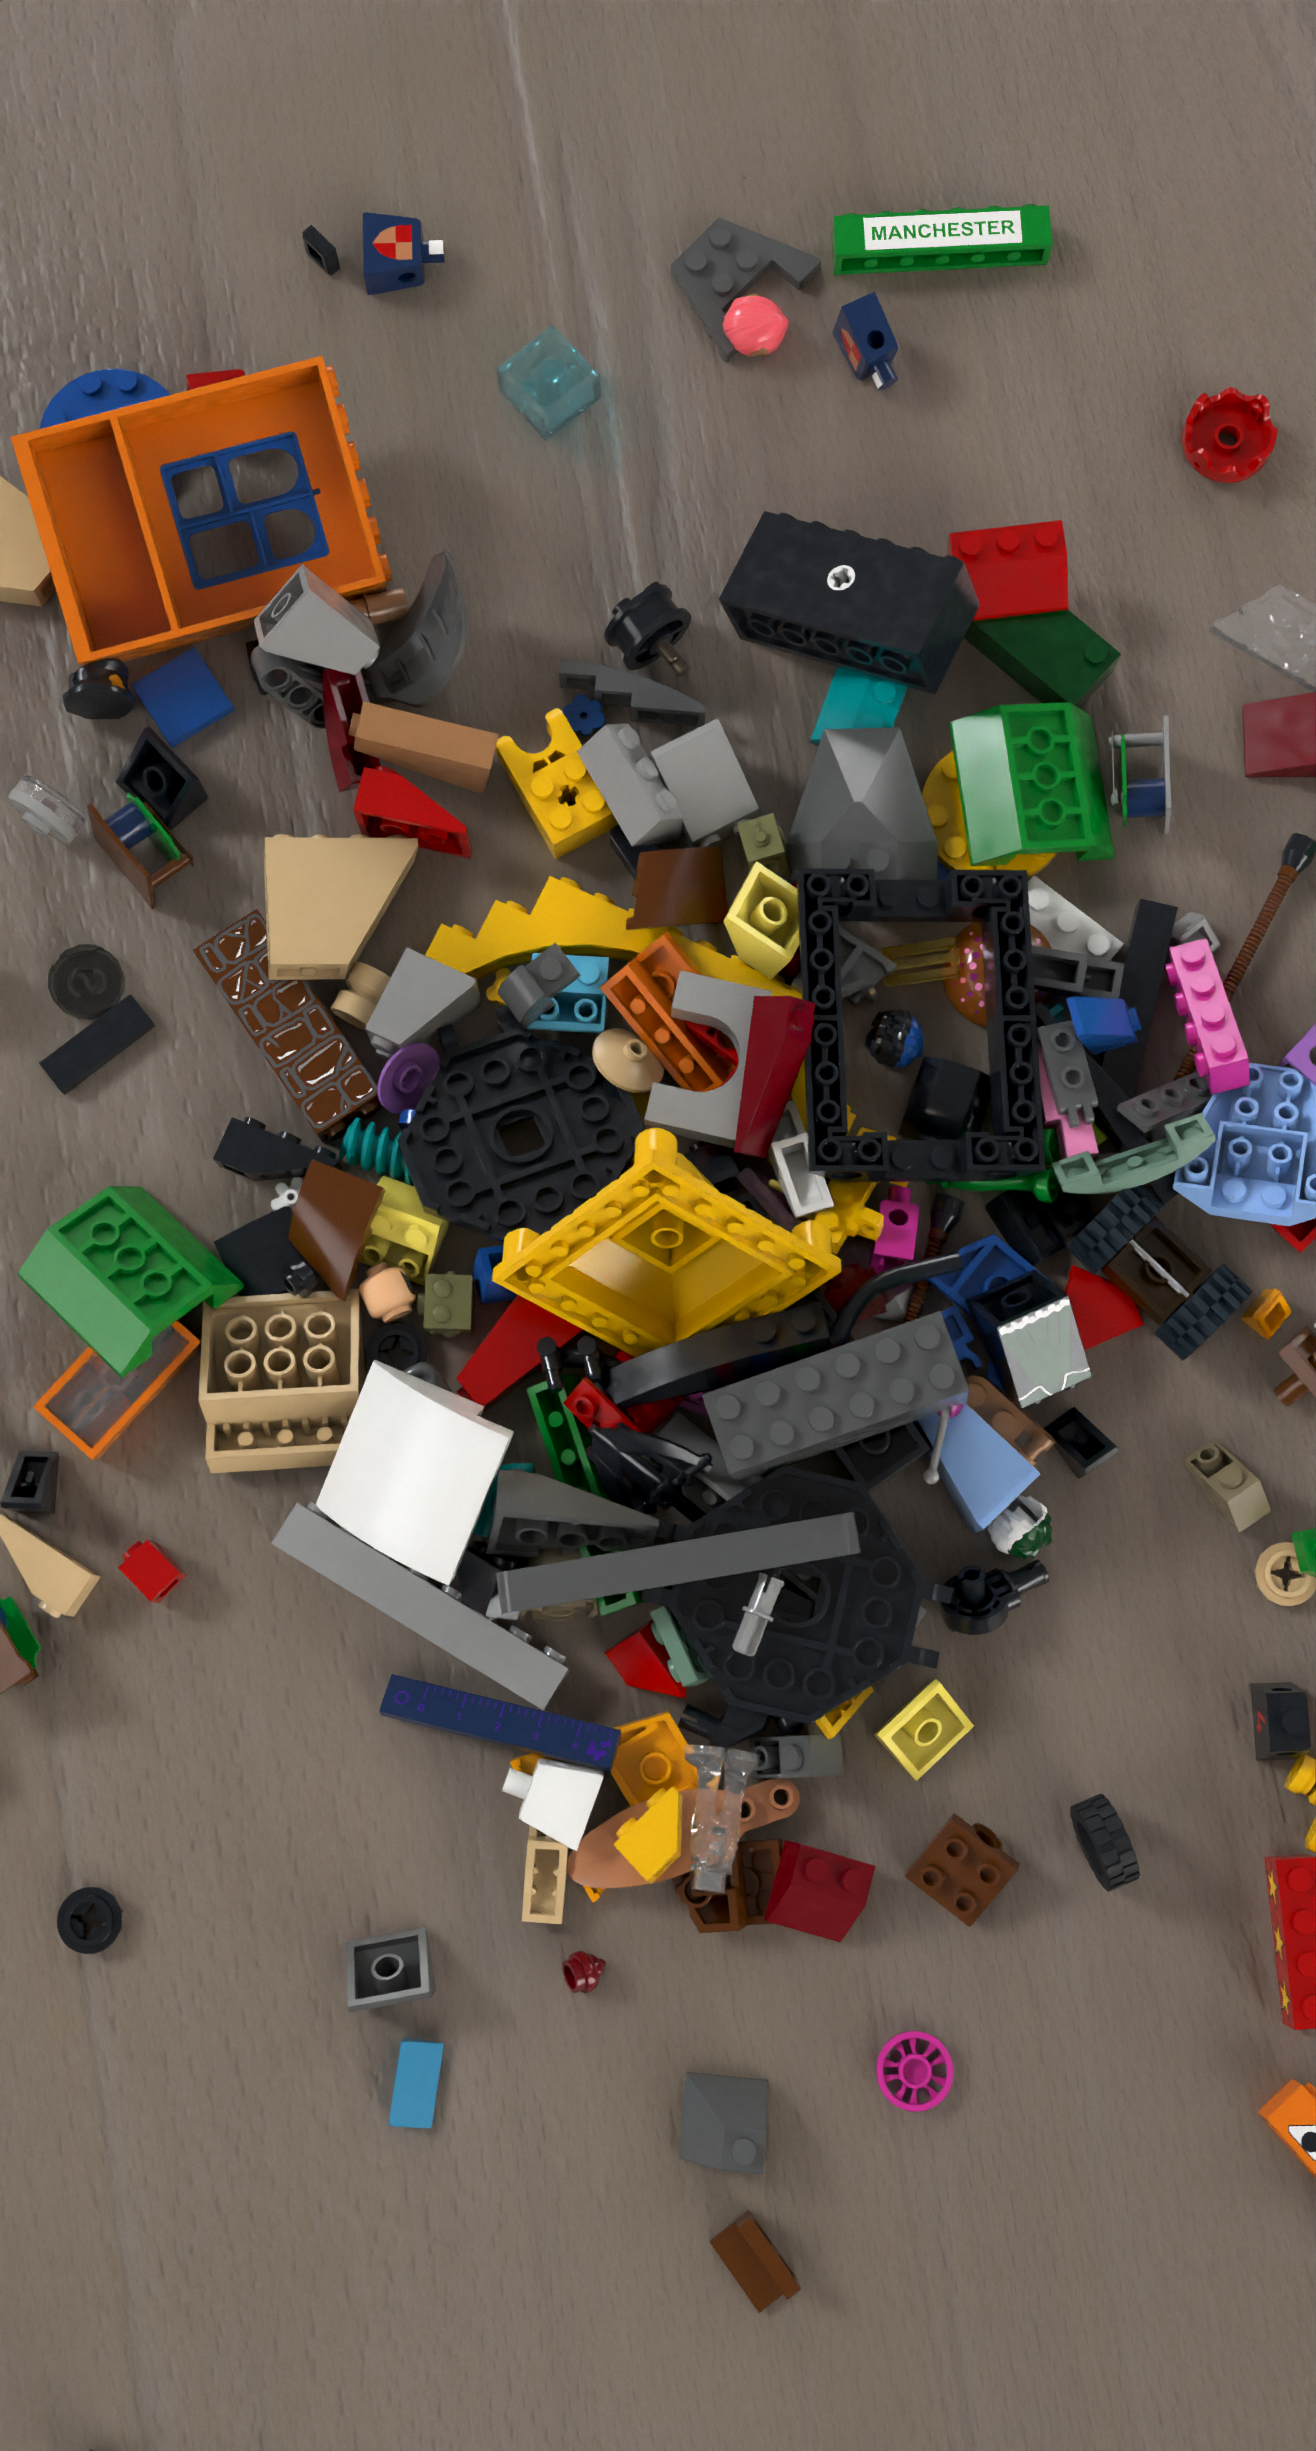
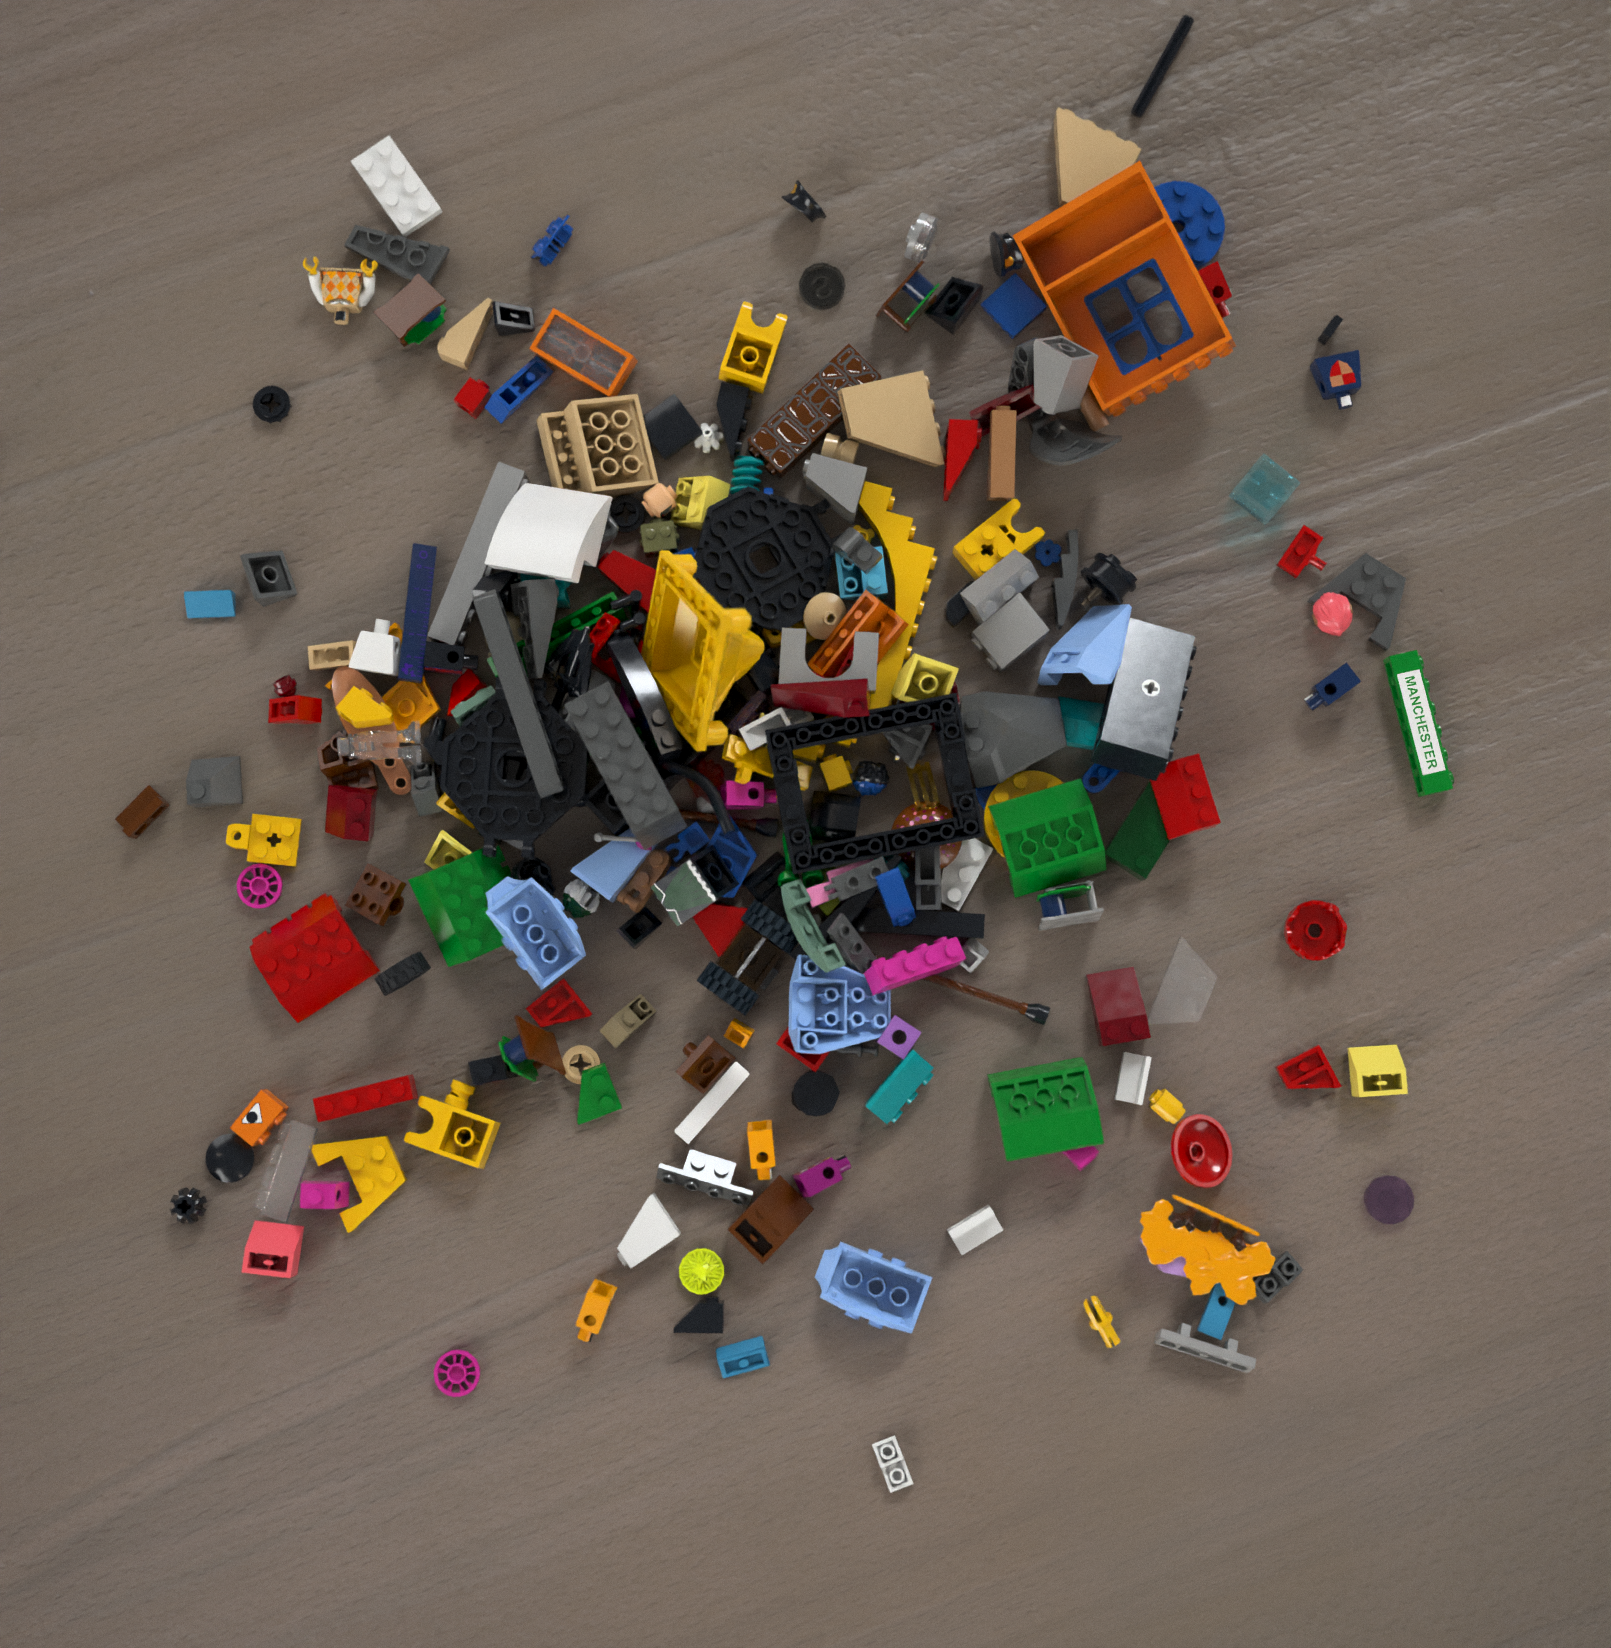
camera: 80 degrees right, 5 degrees up
(97, 1044) = (784, 300): black tile -> none
(124, 1274) = (641, 344): green slope -> none
(154, 1493) = (518, 389): none -> blue slope
(160, 1097) = (752, 343): none -> yellow brick
(298, 1278) = (656, 445): black plate -> none
(334, 1223) = (692, 459): reddish brown slope -> none
(407, 1076) = (792, 486): medium lavender dish -> none
(585, 1697) = (437, 659): none -> black torso
(627, 1961) = (295, 710): none -> red arch
(653, 352) = (1302, 552): none -> red plate
(679, 888) = (939, 627): reddish brown slope -> none
(751, 666) = (1090, 647): none -> light blue wedge
(757, 1615) = (496, 744): light grey axle -> none
(765, 843) = (976, 676): olive head -> none
(832, 2063) = (255, 839): none -> yellow plate
(878, 1090) = (836, 772): none -> yellow brick
(947, 697) = (1101, 774): none -> blue plate
(1009, 1709) = (457, 904): none -> green slope
(1049, 1999) = (312, 958): none -> red slope
(1064, 1606) = (534, 928): none -> light blue slope
(1186, 1595) = (558, 1006): none -> red wing
(1260, 1640) = (528, 1046): none -> reddish brown piece

